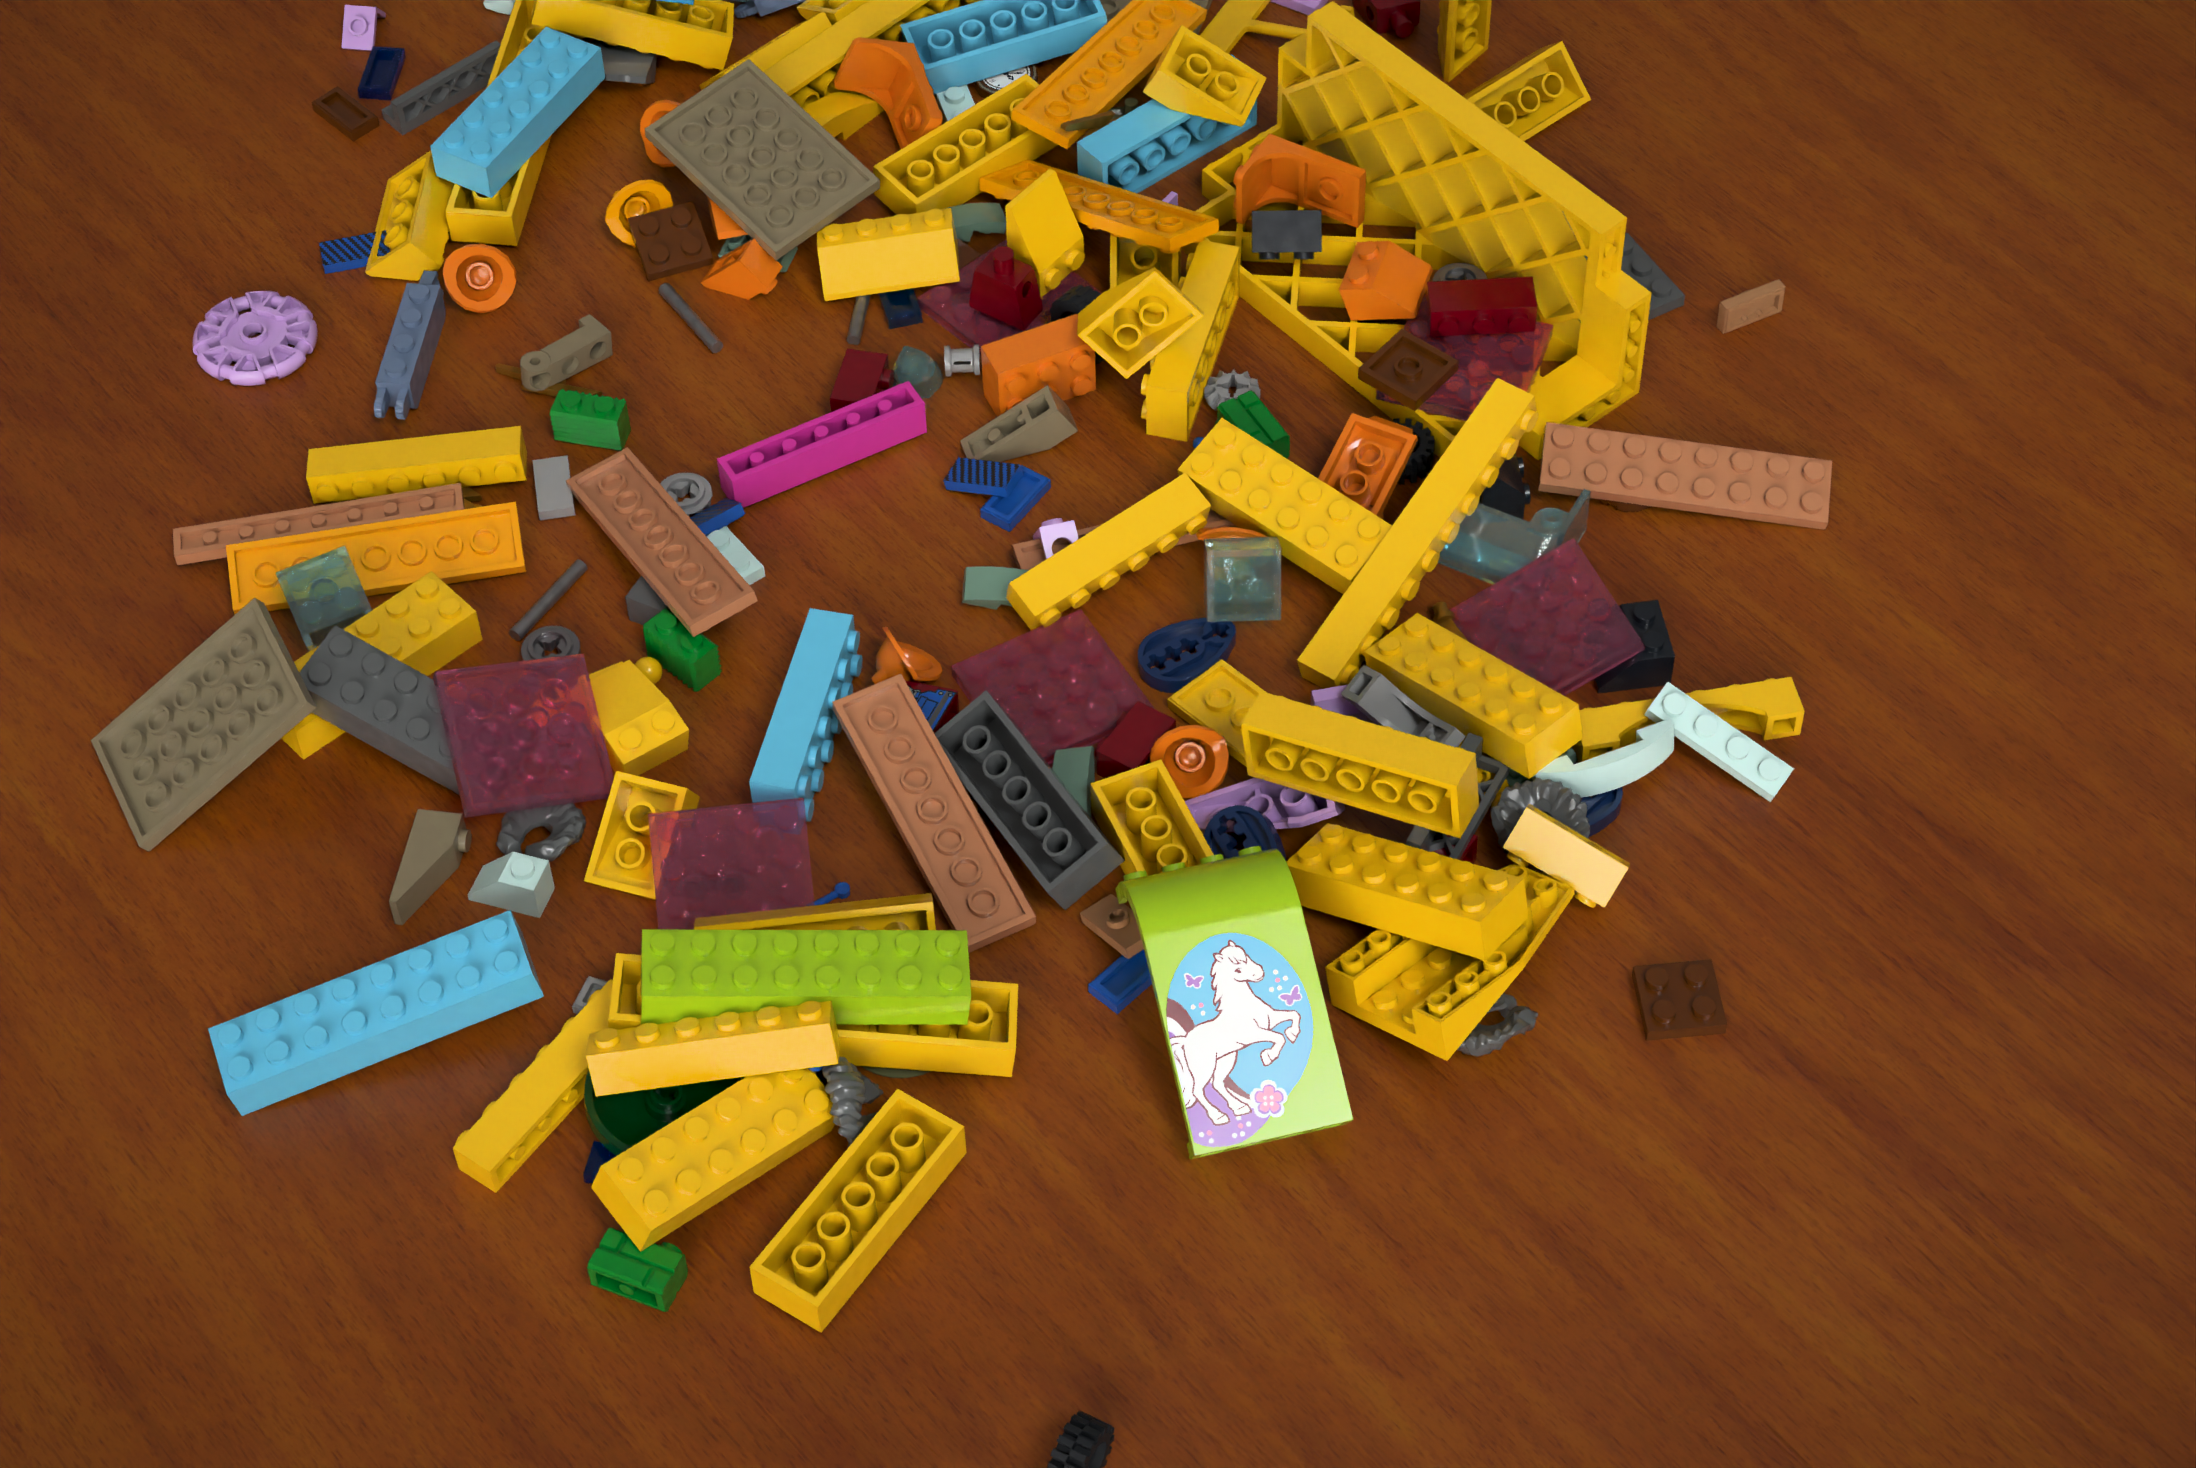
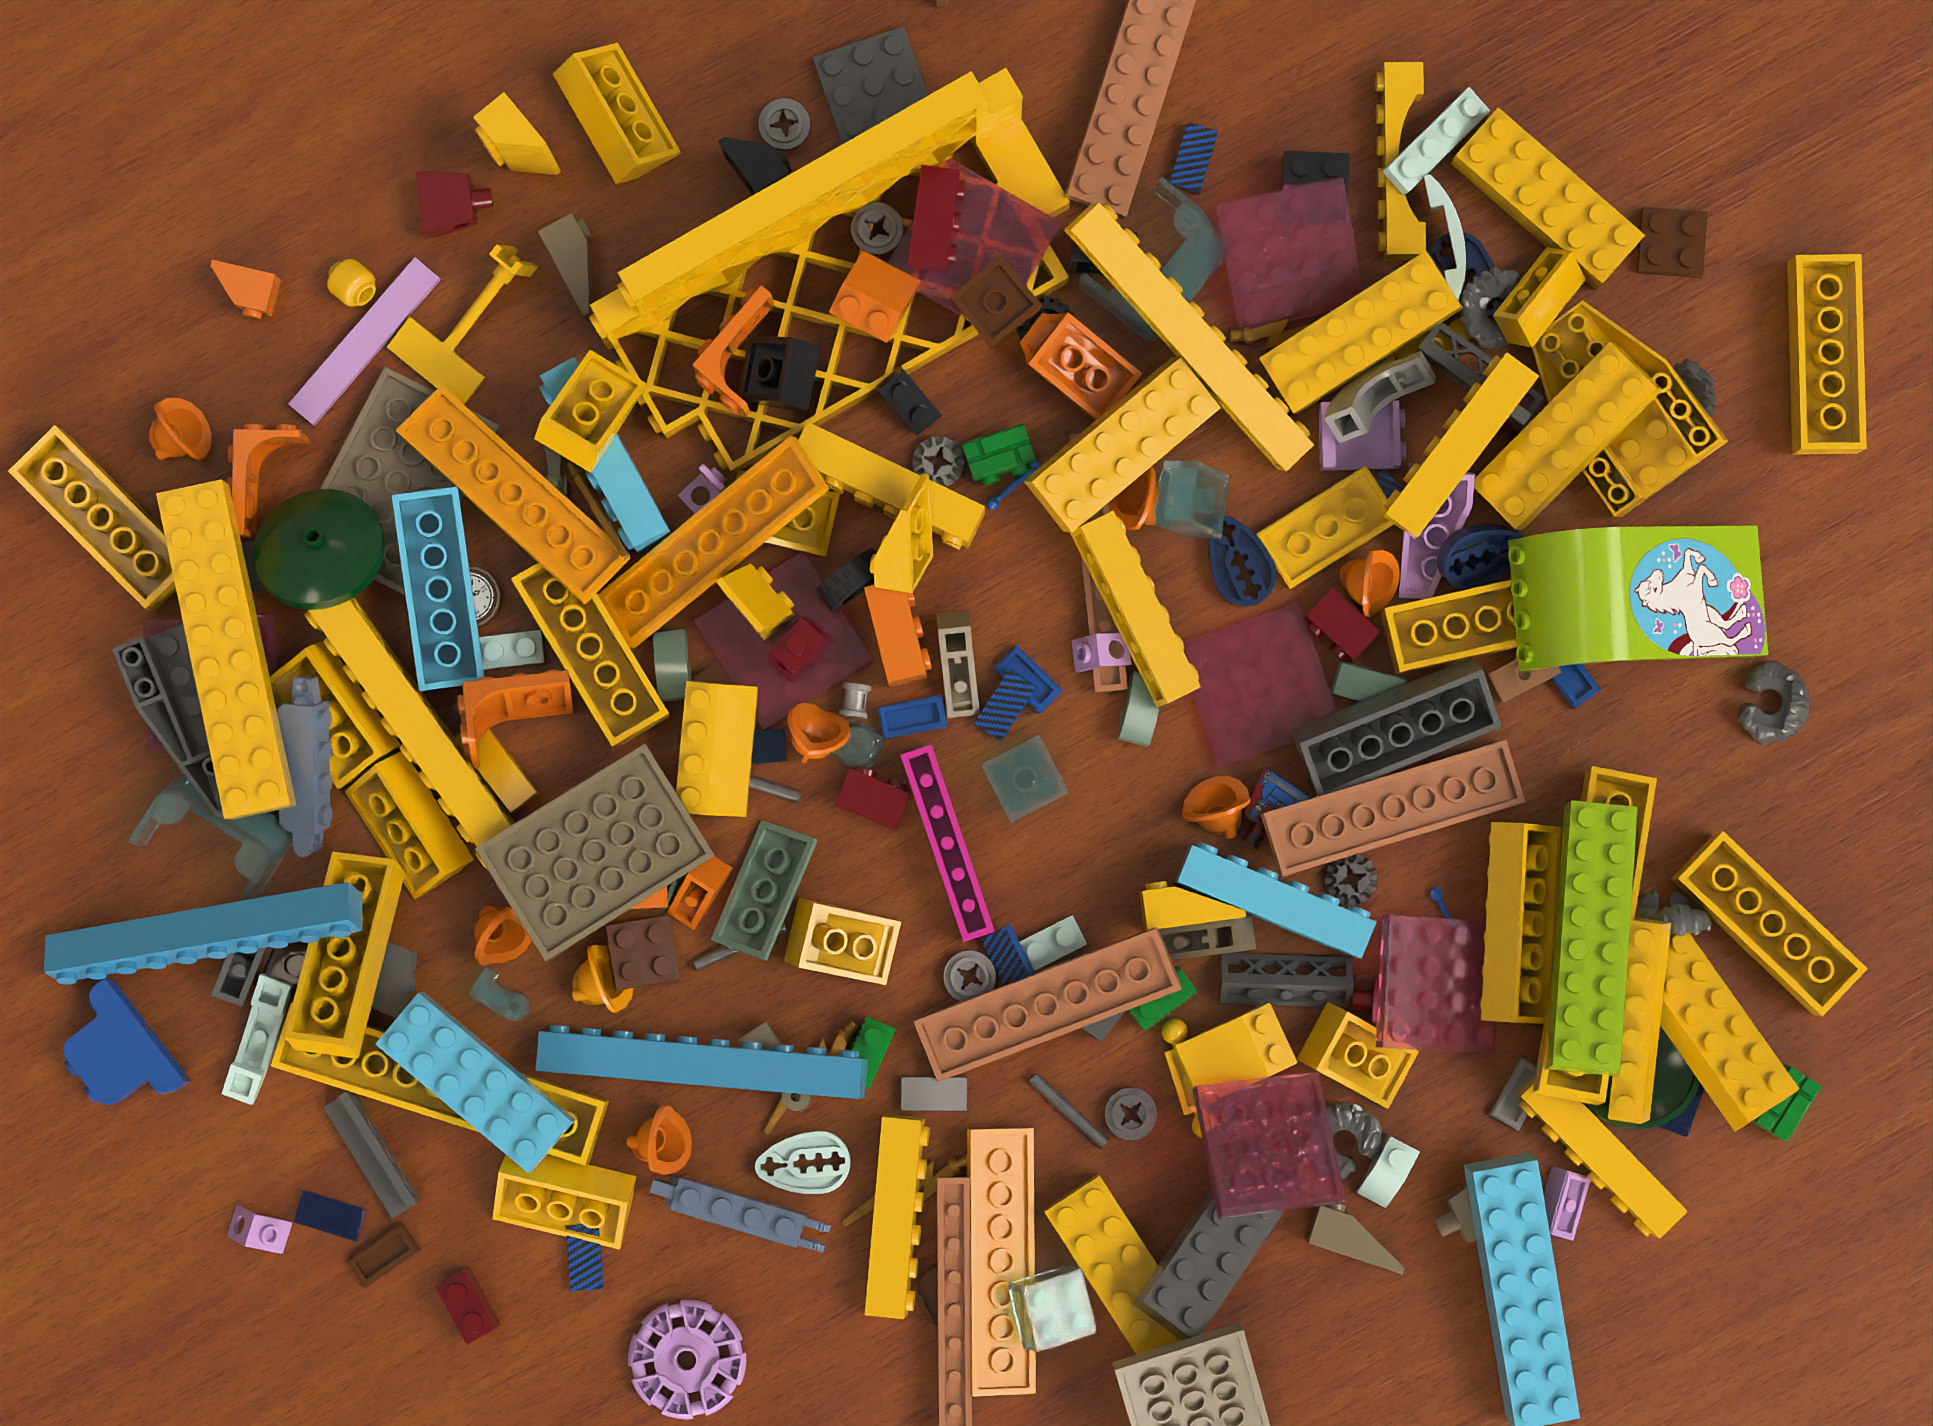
camera: 80 degrees left, 35 degrees up
(298, 168) = (468, 1305): none -> dark red brick
(479, 384) = (812, 1181): none -> light aqua piece
(485, 1066) = (1564, 1201): none -> lavender slope
(561, 288) = (702, 1064): none -> dark azure brick
(611, 148) = (498, 998): none -> clear light blue leg
(704, 383) = (842, 941): none -> yellow slope
(711, 753) = (1286, 986): none -> dark grey fence
(749, 316) = (764, 890): none -> sand green slope
(754, 679) = (1209, 938): none -> dark tan slope
(779, 623) = (1178, 907): none -> yellow slope
(839, 817) = (1365, 886): none -> flat silver gear
(903, 496) = (1024, 779): none -> clear light blue brick
(920, 322) = (816, 731): none -> orange helmet
(953, 411) = (912, 717): none -> blue tile
(1139, 1205) = (1793, 709): none -> dark grey piece
(1288, 348) = (908, 400): none -> black plate
(1587, 1163) = (1826, 354): none -> yellow brick
(1627, 548) = (1193, 158): none -> tile
(1686, 860) = (1546, 197): none -> yellow brick

